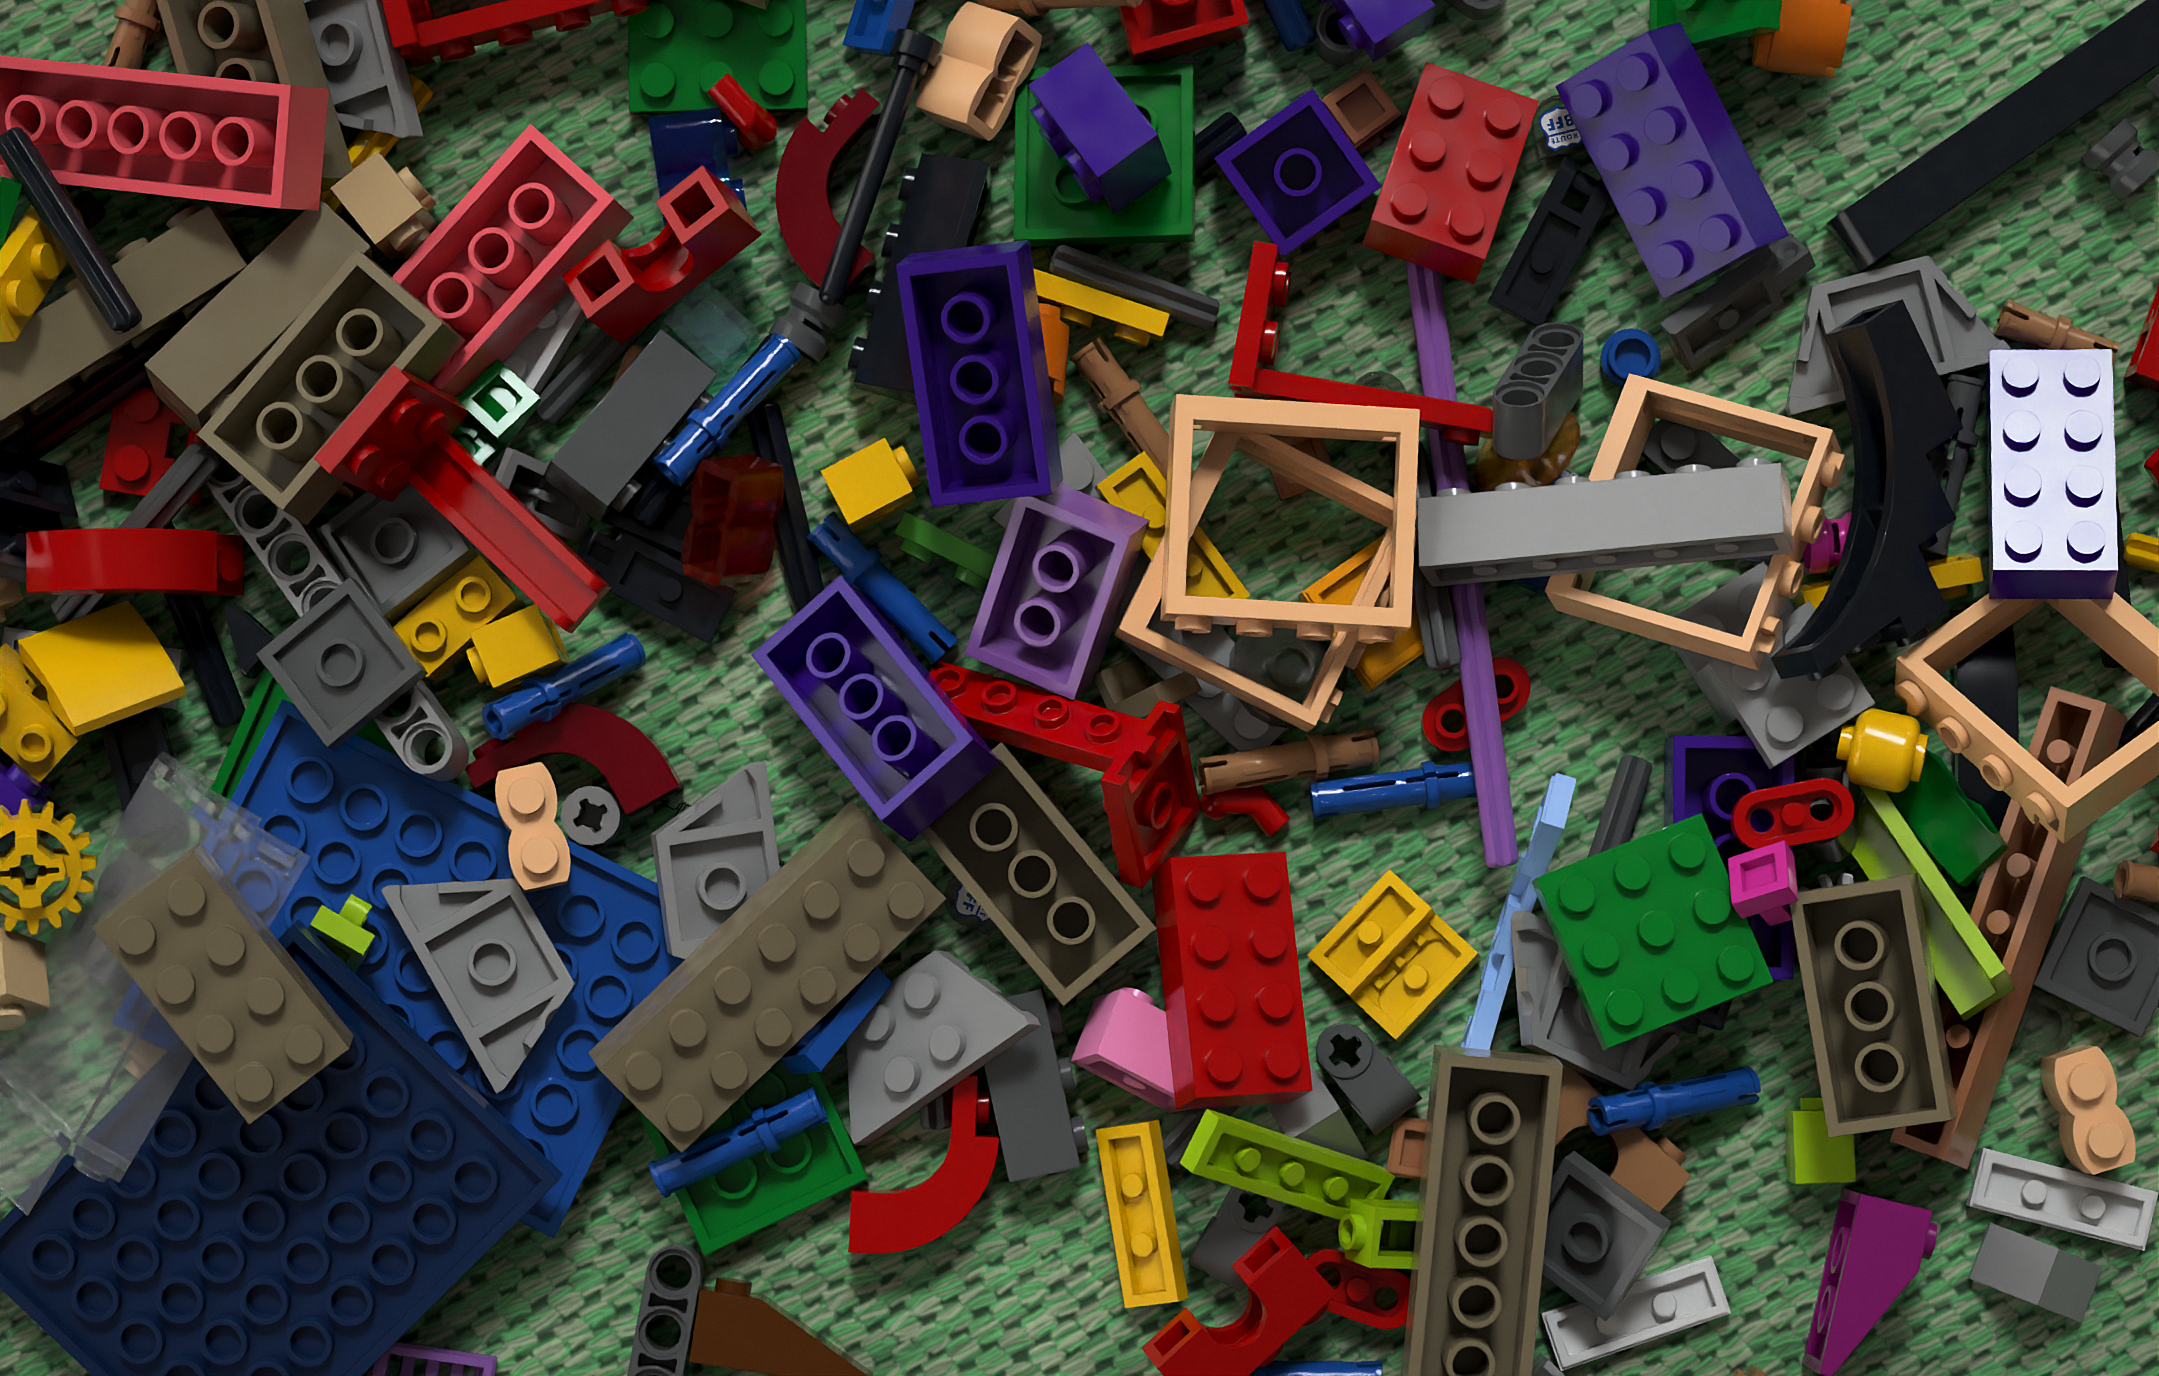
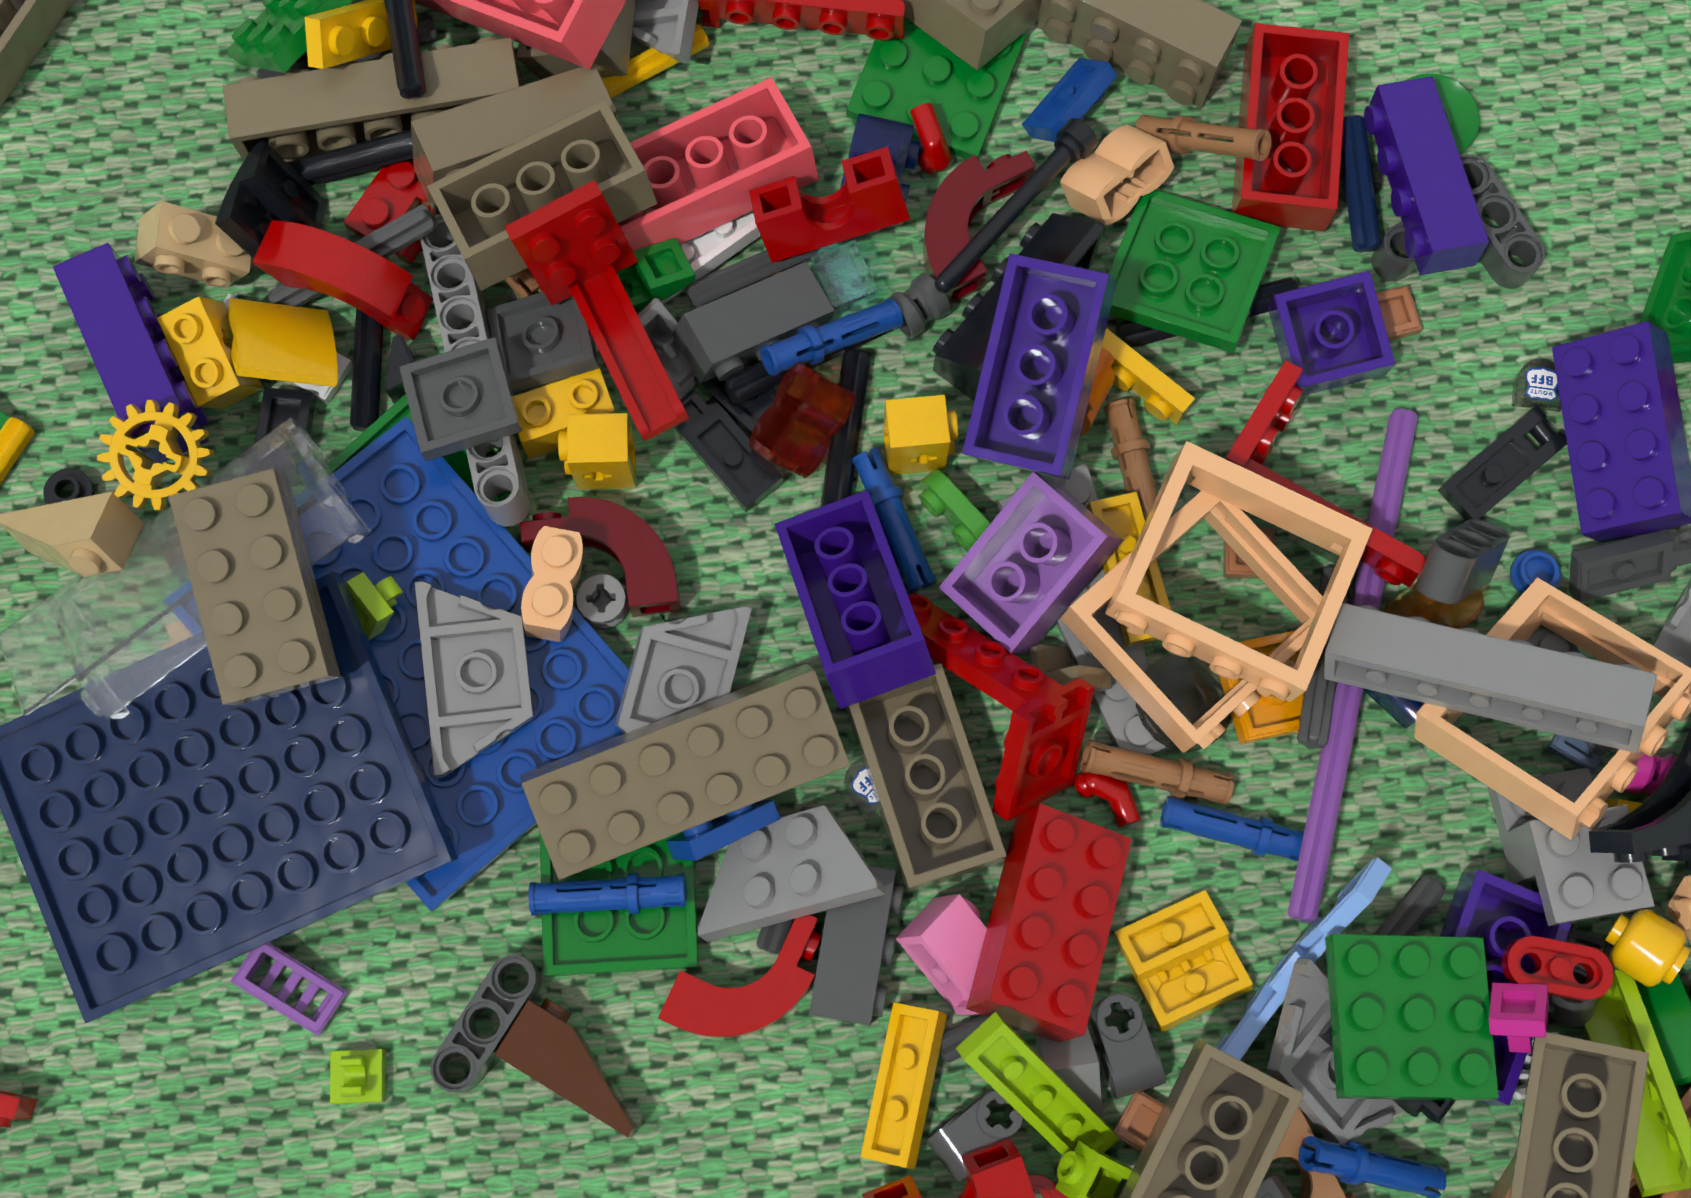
camera: 20 degrees right, 10 degrees down
(387, 205) = (641, 93): tan brick -> none
(546, 695) = (604, 490): blue pin -> none
(1098, 130) = (1197, 235): dark purple brick -> none
(1135, 286) = (1207, 403): dark grey axle -> none
(1450, 173) = (1448, 379): red brick -> none
(1453, 699) = (1305, 777): red plate -> none

